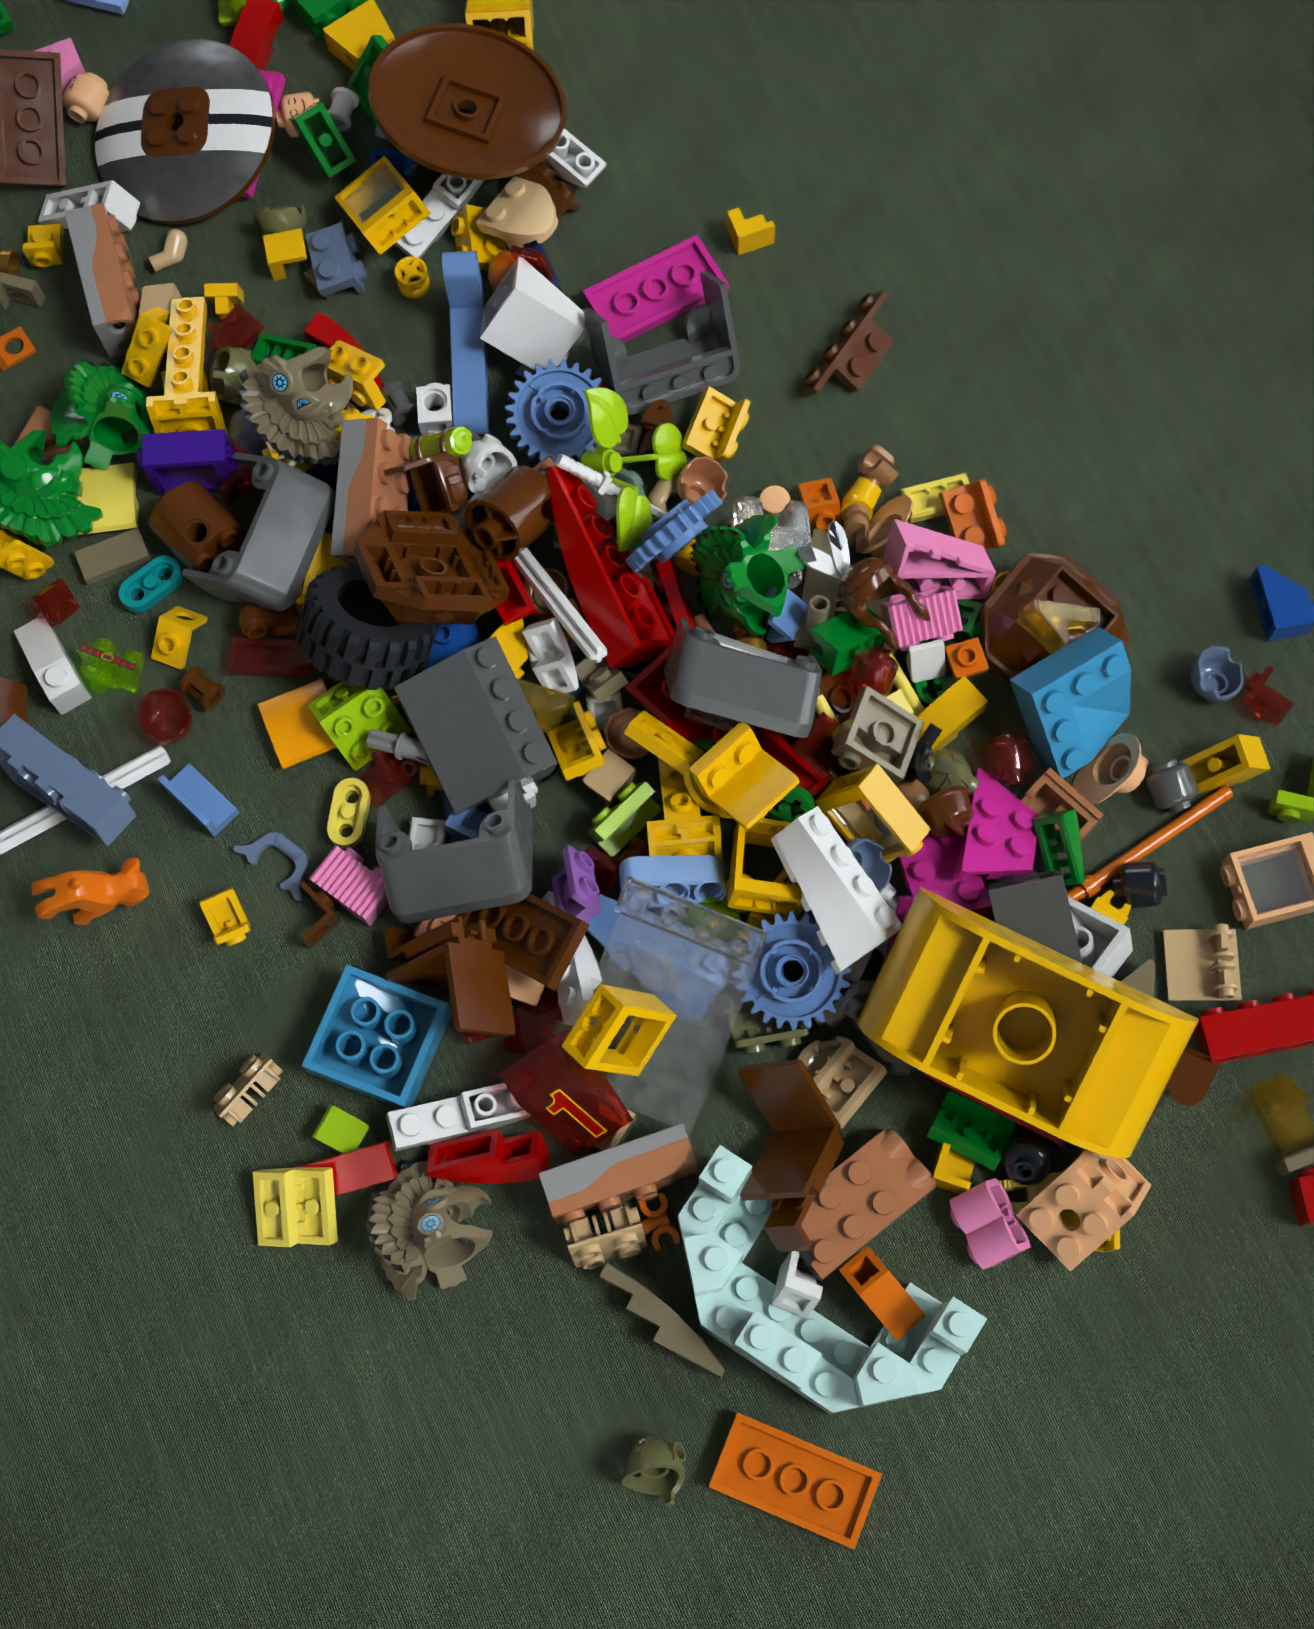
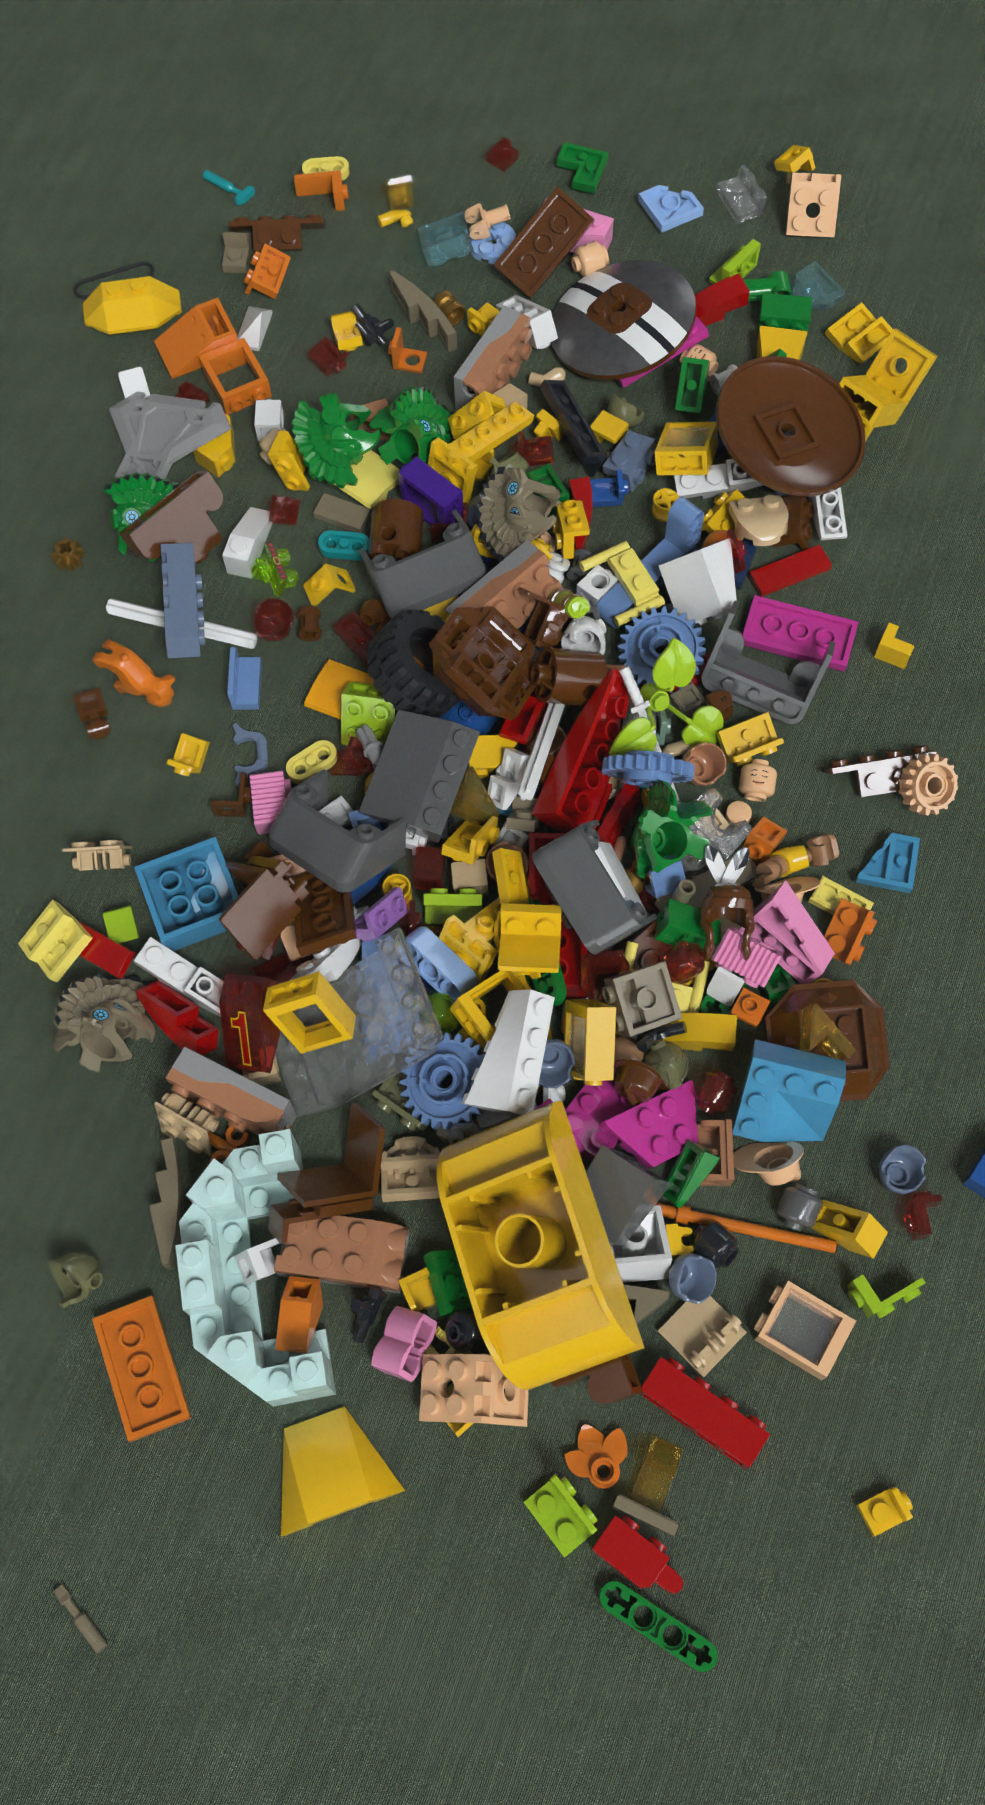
camera: 45 degrees right, 5 degrees down
(78, 963) = (90, 708): none -> reddish brown plate
(251, 274) = (574, 425): none -> black panel
(349, 306) = (609, 490): none -> blue bracket
(464, 371) = (632, 577): none -> light yellow plate
(552, 847) = (401, 881): none -> yellow wheel
(565, 804) = (429, 868): none -> clear red panel
(586, 240) = (790, 570): none -> red tile
(761, 456) = (757, 780): none -> light nougat head
(906, 327) = (915, 786): none -> light nougat gear
(931, 1232) = (367, 1311): none -> black piece
(945, 424) = (892, 864): none -> dark azure wing
(1040, 1391) = (330, 1471): none -> yellow wedge
(1154, 928) = (692, 1277): none -> sand blue hair
(1224, 1146) = (598, 1451): none -> orange plate
(1254, 1222) = (561, 1515): none -> lime bracket

